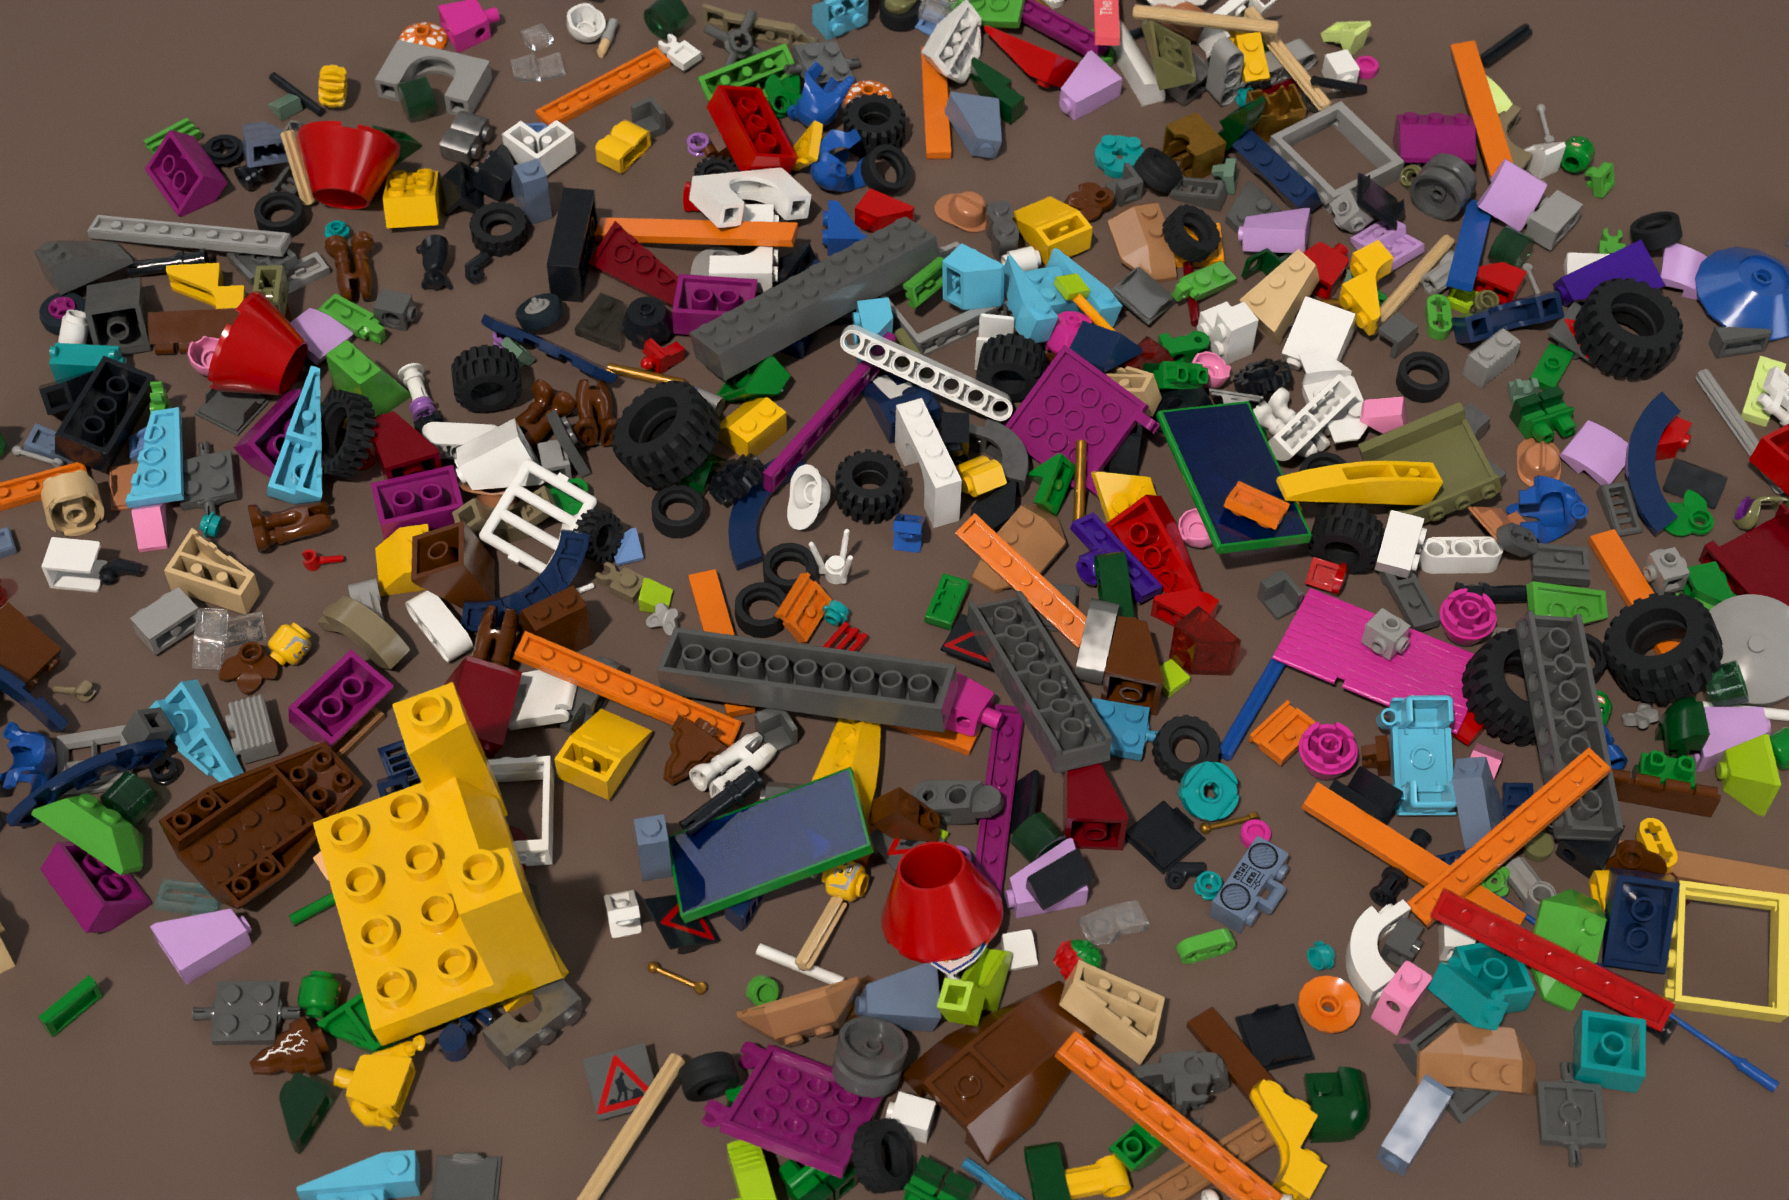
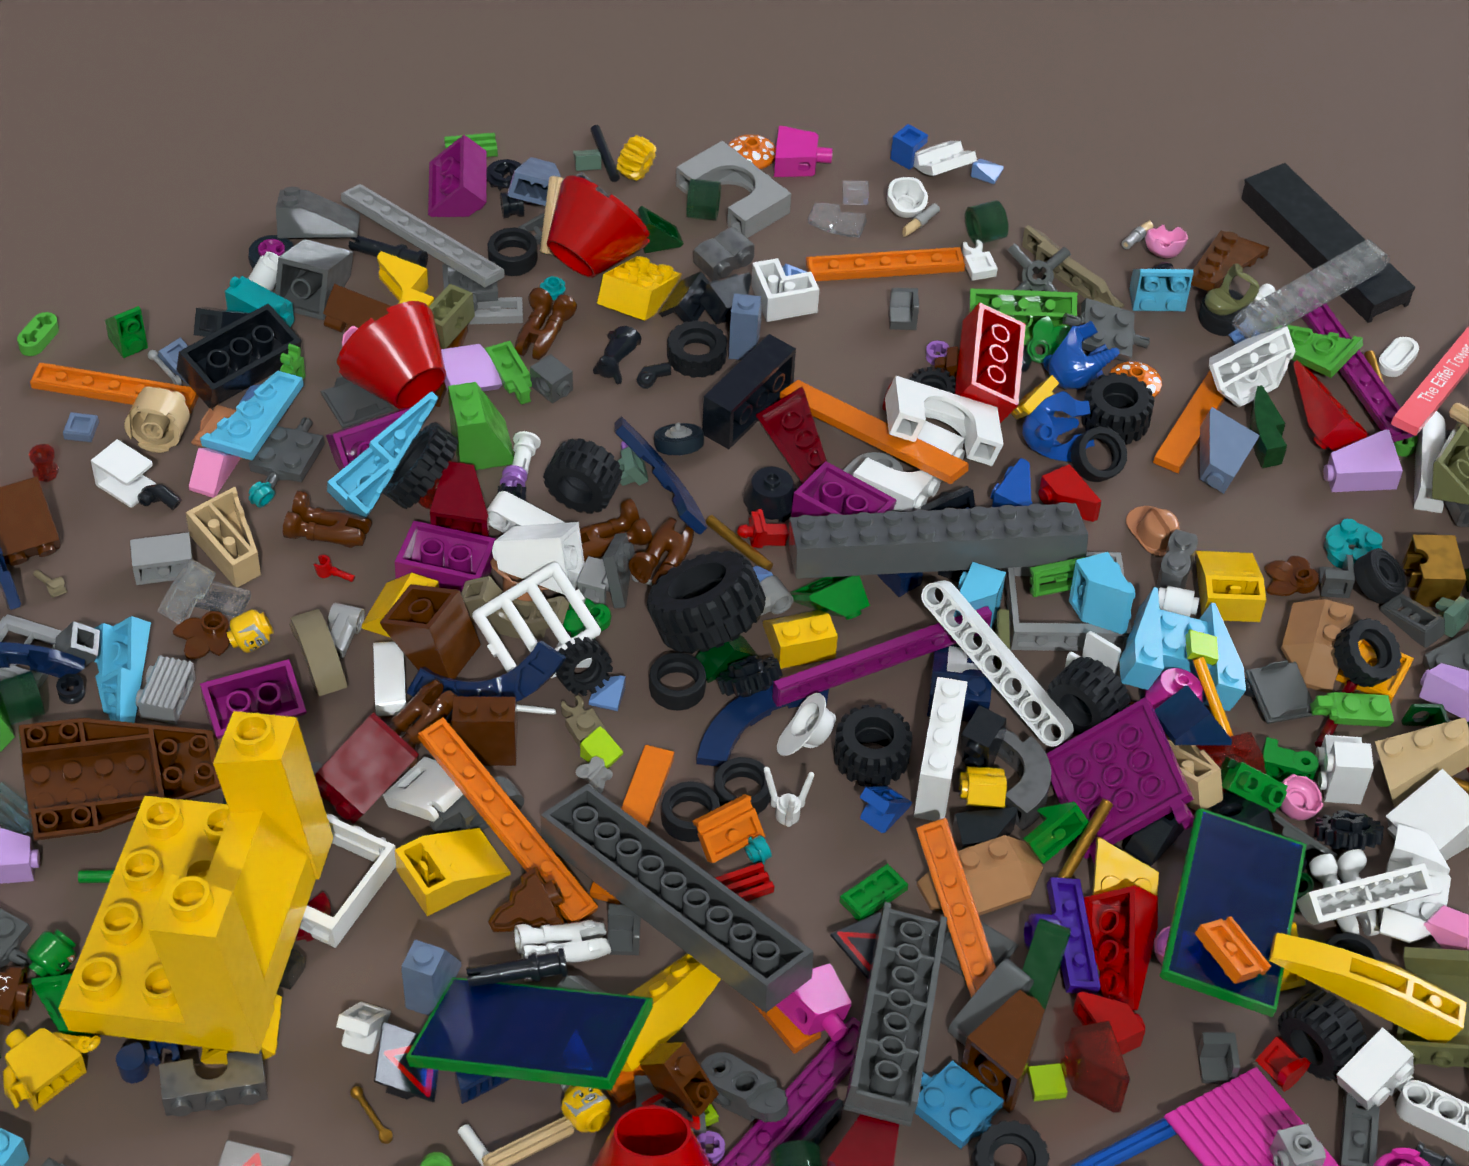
camera: 30 degrees right, 5 degrees down
(603, 322) = (732, 475): clear smoke wing -> none
(623, 146) = (863, 324): yellow brick -> none

